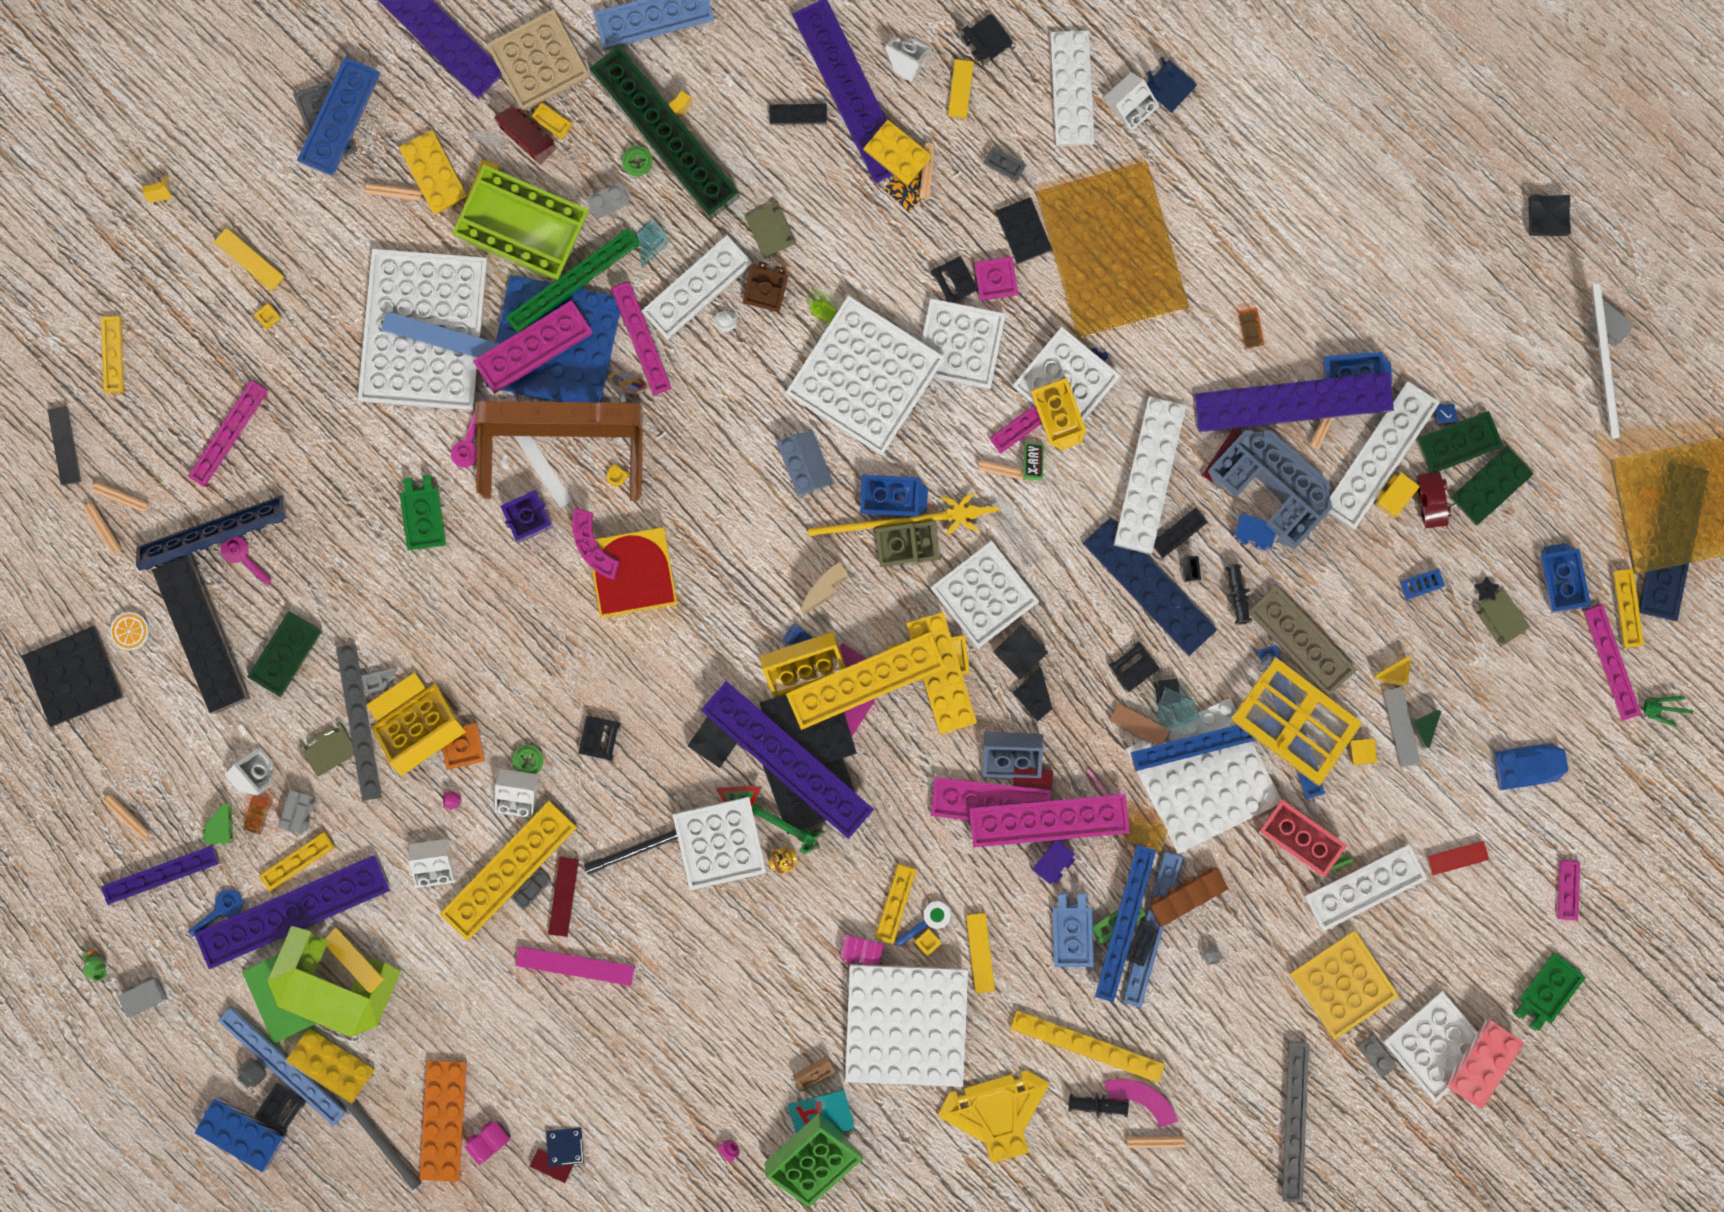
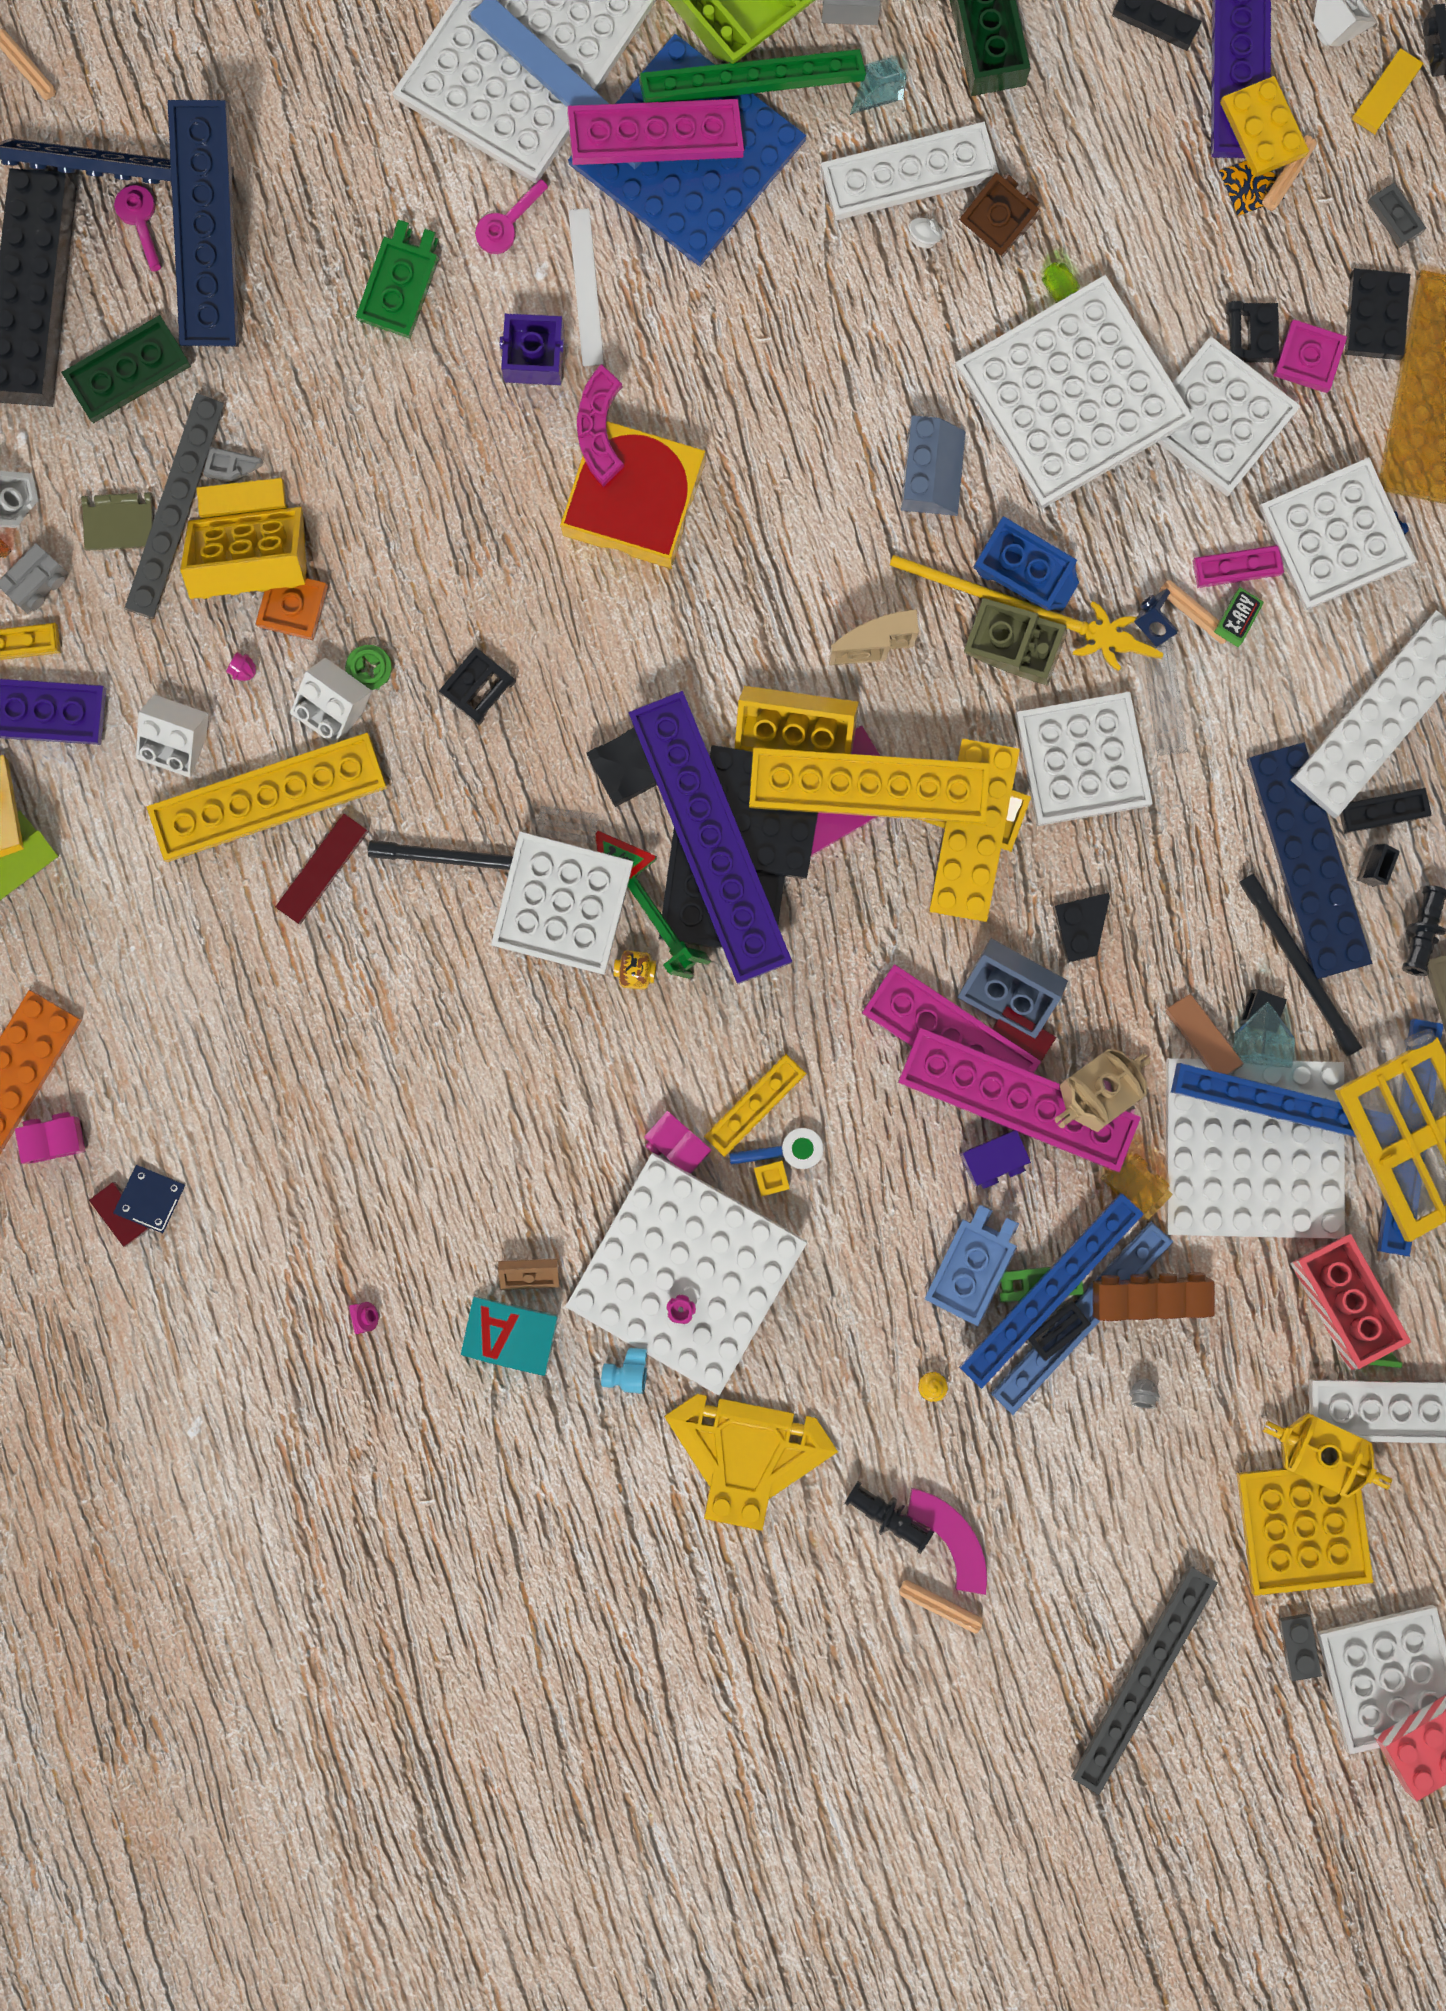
camera: 25 degrees right, 0 degrees up
(228, 433) = (205, 54): dark pink tile -> none
(290, 545) = (203, 222): none -> dark blue plate
(530, 889) = (283, 837): tile -> none
(557, 420) = (636, 242): dark orange piece -> none
(575, 966) = (289, 967): dark pink tile -> none
(616, 476) = (677, 360): yellow tile -> none
(626, 384) = (749, 244): shield -> none
(641, 338) = (802, 198): dark pink tile -> none
(770, 229) = (1043, 147): olive piece -> none
(796, 635) = (805, 684): blue slope -> none
(812, 1161) = (465, 1390): bright green slope -> none
(905, 1101) = (630, 1376): none -> medium azure piece
(919, 1048) = (680, 1317): none -> dark pink plate
(979, 488) = (1151, 613): none -> dark blue bracket
(980, 953) = (834, 1229): yellow tile -> none
(1020, 652) = (1093, 857): black brick -> none
(1059, 414) = (1308, 569): yellow slope -> none
(1085, 1015) = (933, 1386): none -> yellow plate
(1087, 1046) = (914, 1429): yellow plate -> none
(1095, 802) = (1088, 1099): none -> tan plate
(1137, 672) = (1235, 965): black plate -> none
(1219, 679) = (1340, 1029): none -> black piece
(1318, 934) = (1302, 1452): none -> yellow plate

